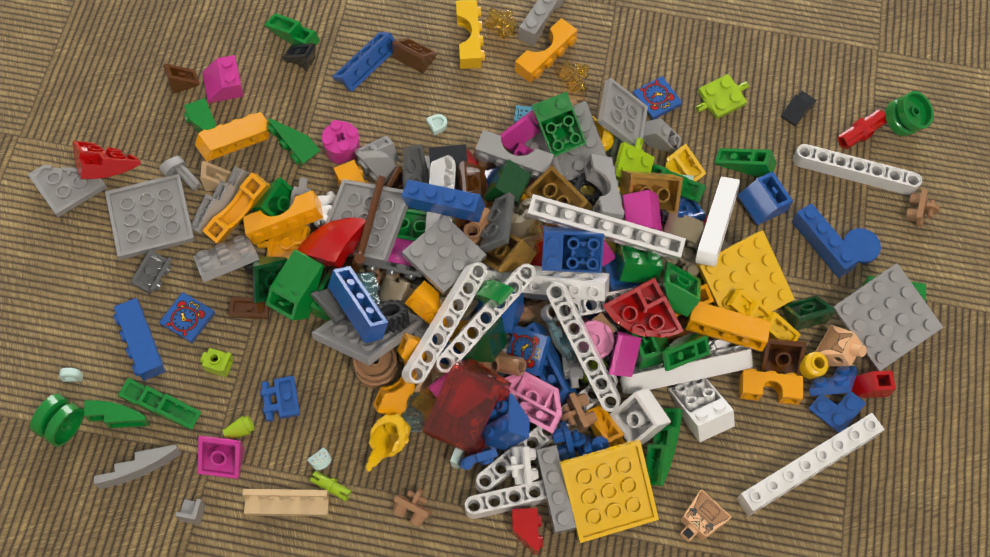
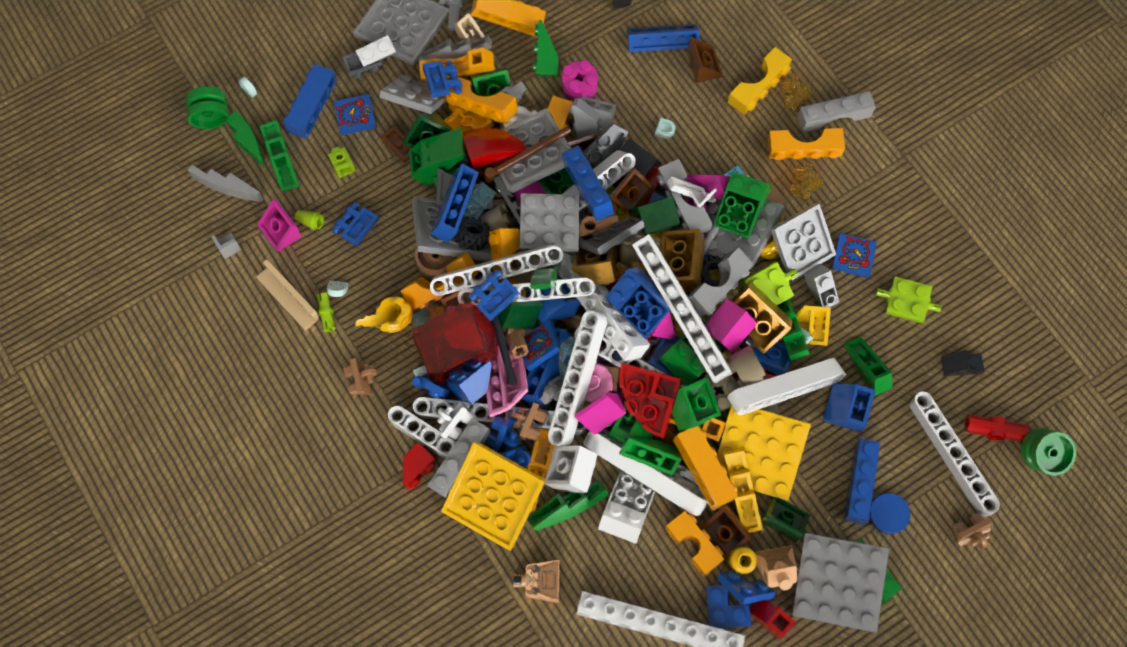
camera: 50 degrees right, 5 degrees up
(155, 254) = (376, 51): none -> white plate
(234, 229) = (437, 80): none -> blue plate
(474, 339) = (498, 298): none -> blue plate
(506, 374) = (504, 350): none -> black bar
(518, 143) = (691, 190): none -> white piece

